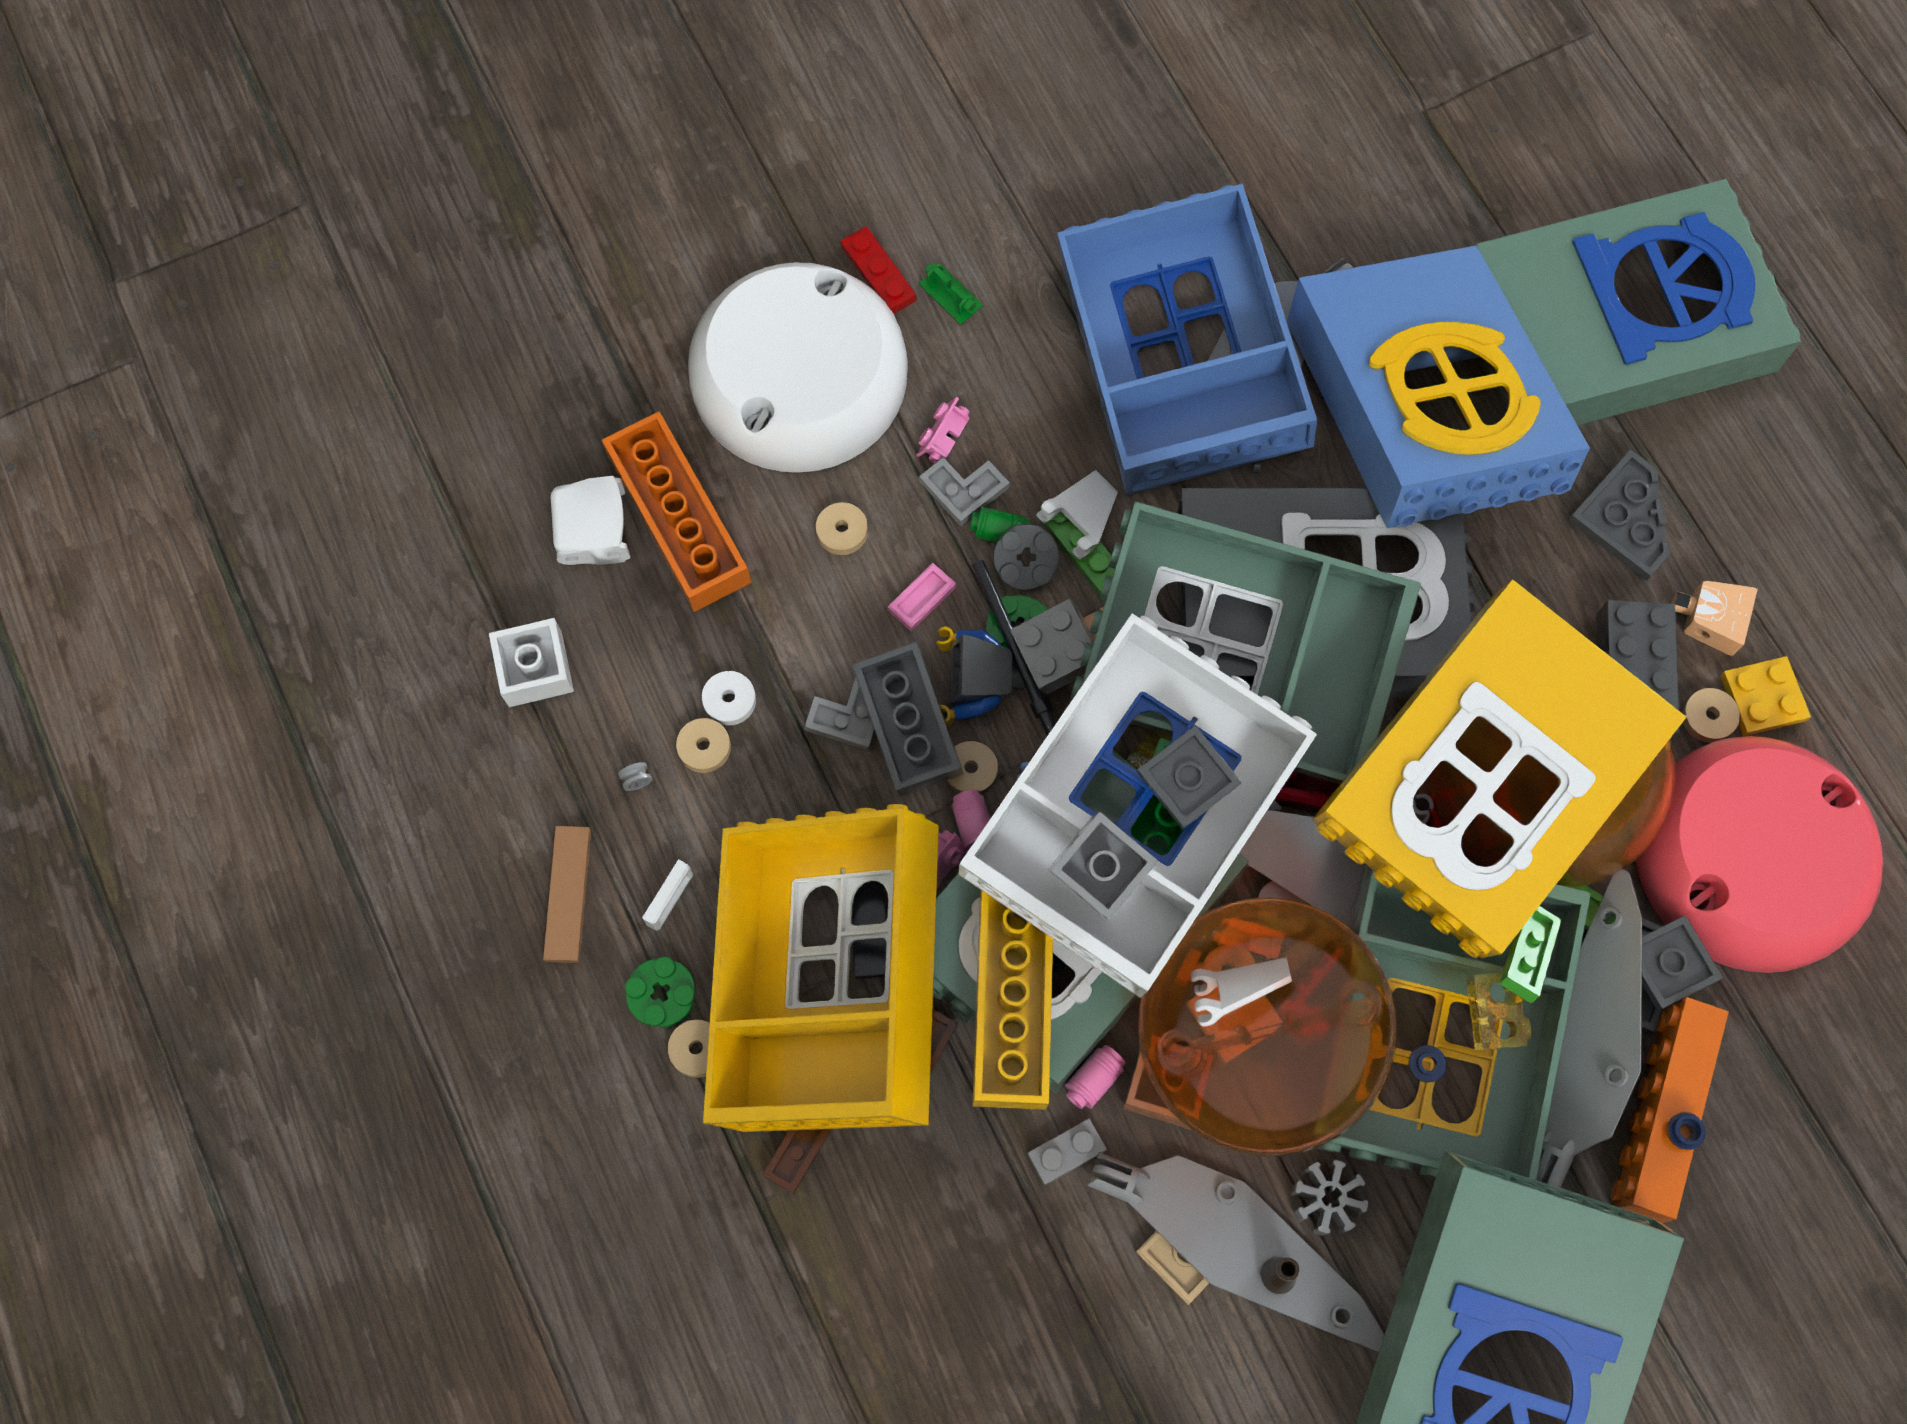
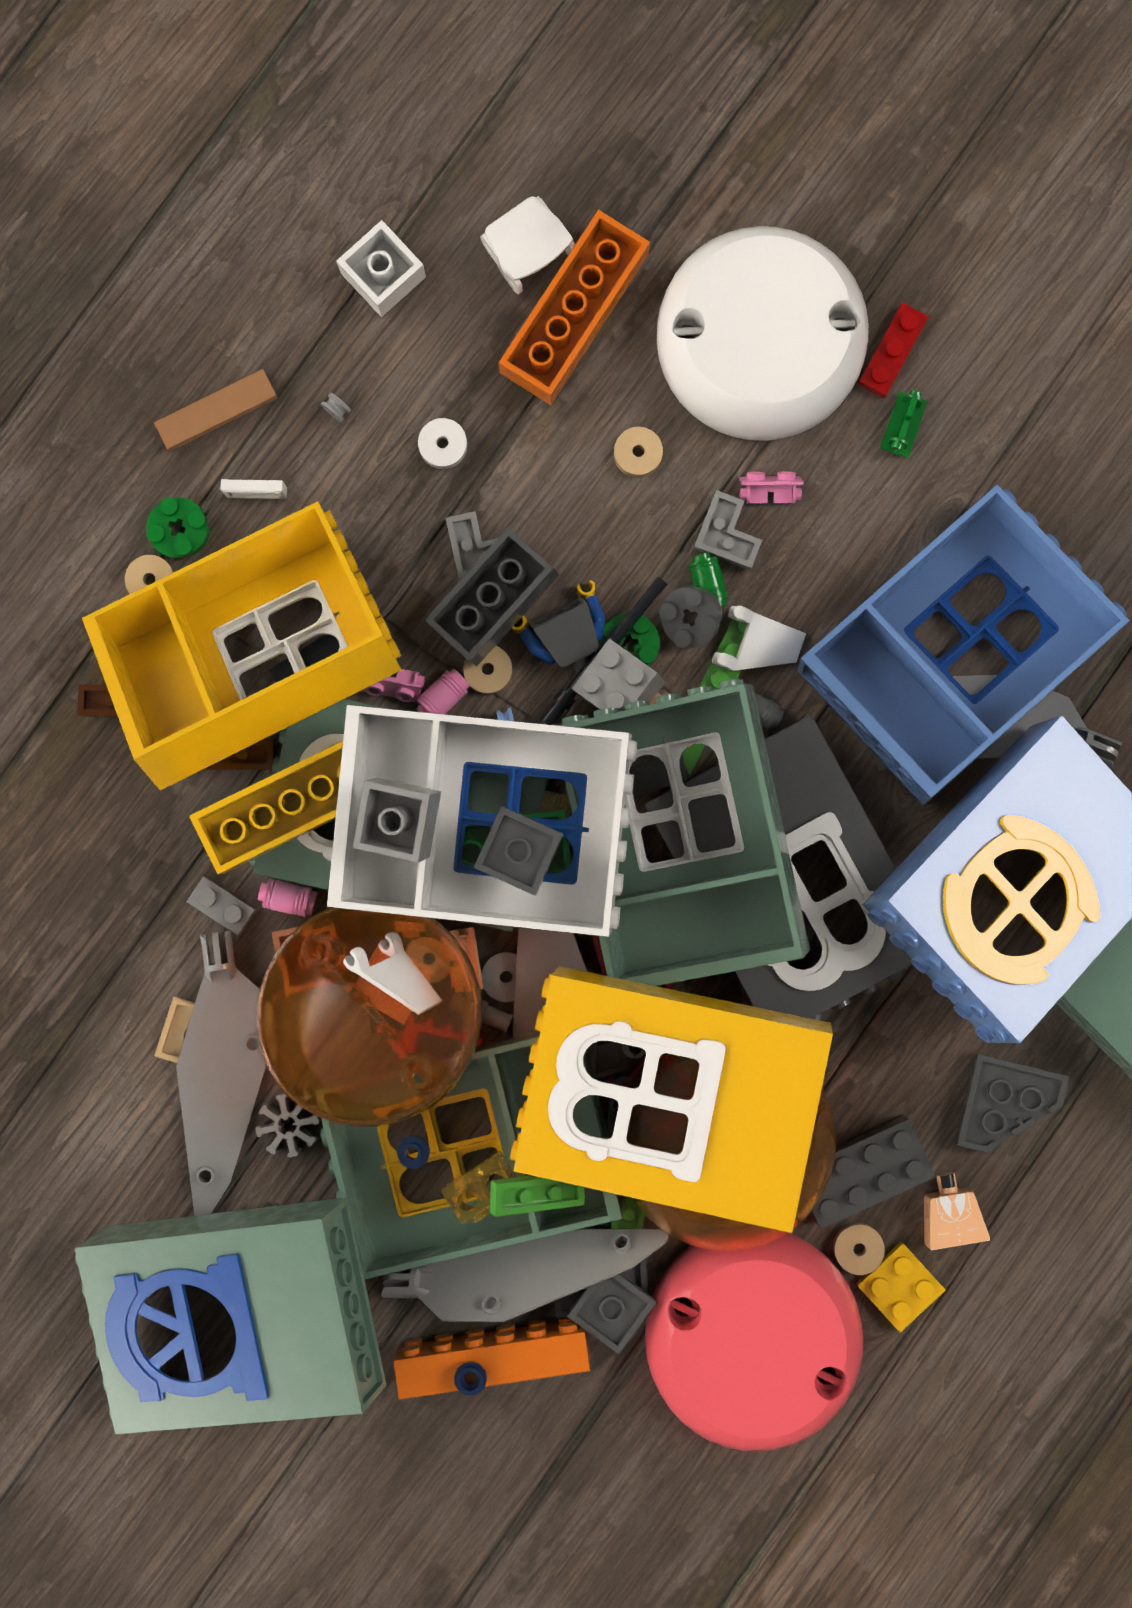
camera: 60 degrees right, 15 degrees up
(696, 732) = (392, 432): tan piece -> none
(921, 597) = (613, 550): bright pink tile -> none
(1273, 1277) = (210, 1106): dark brown cone -> none

